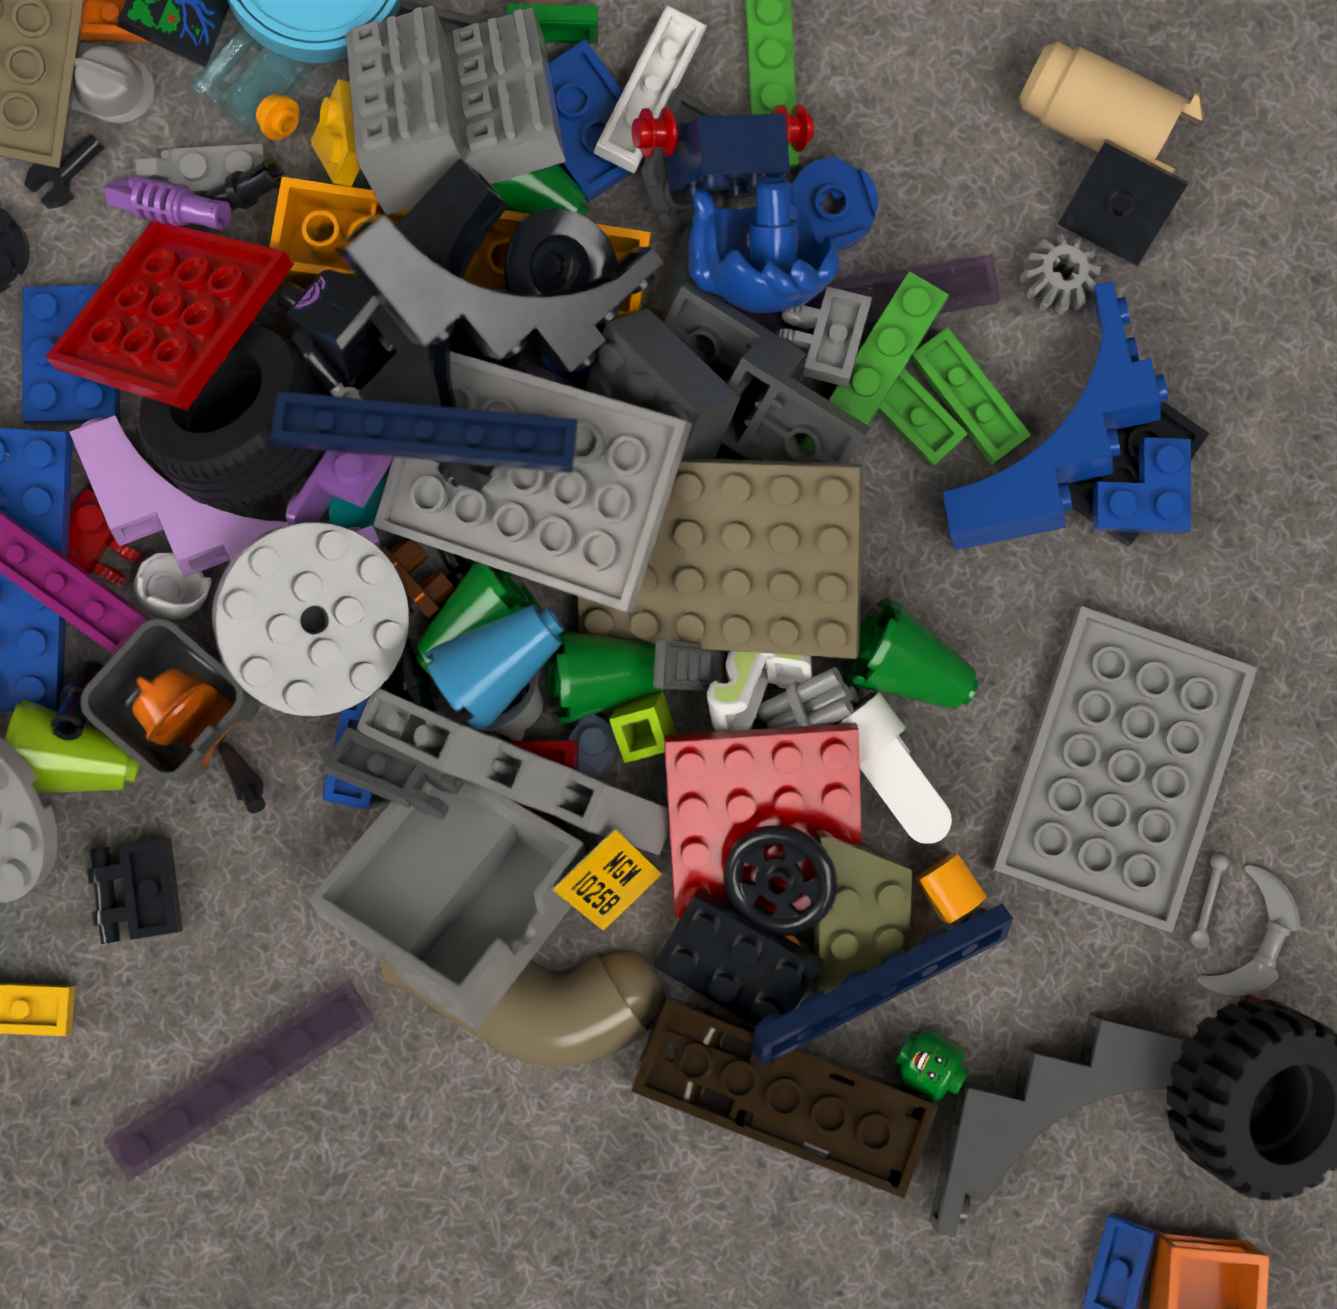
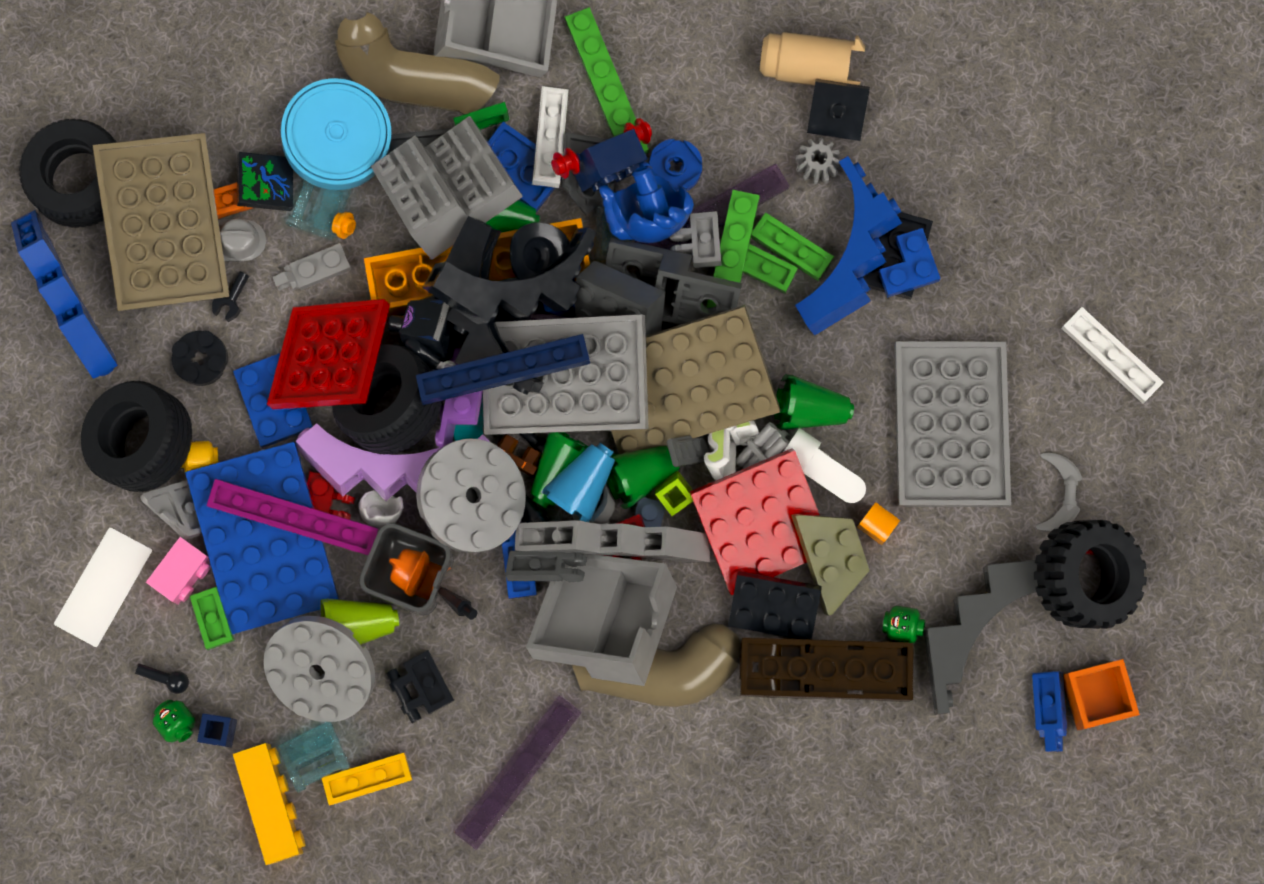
camera: 10 degrees left, 5 degrees down
(70, 719) = (352, 589): black pin -> none
(166, 202) = (299, 295): medium lavender hinge -> none
(244, 188) = (339, 273): black pin -> none
(336, 137) = (386, 224): yellow wing -> none
(607, 880) = (686, 583): yellow sticker -> none
(797, 847) = (784, 526): black plate -> none
(864, 991) = (858, 587): dark blue plate -> none
(1199, 937) = (1028, 504): light grey hinge -> none

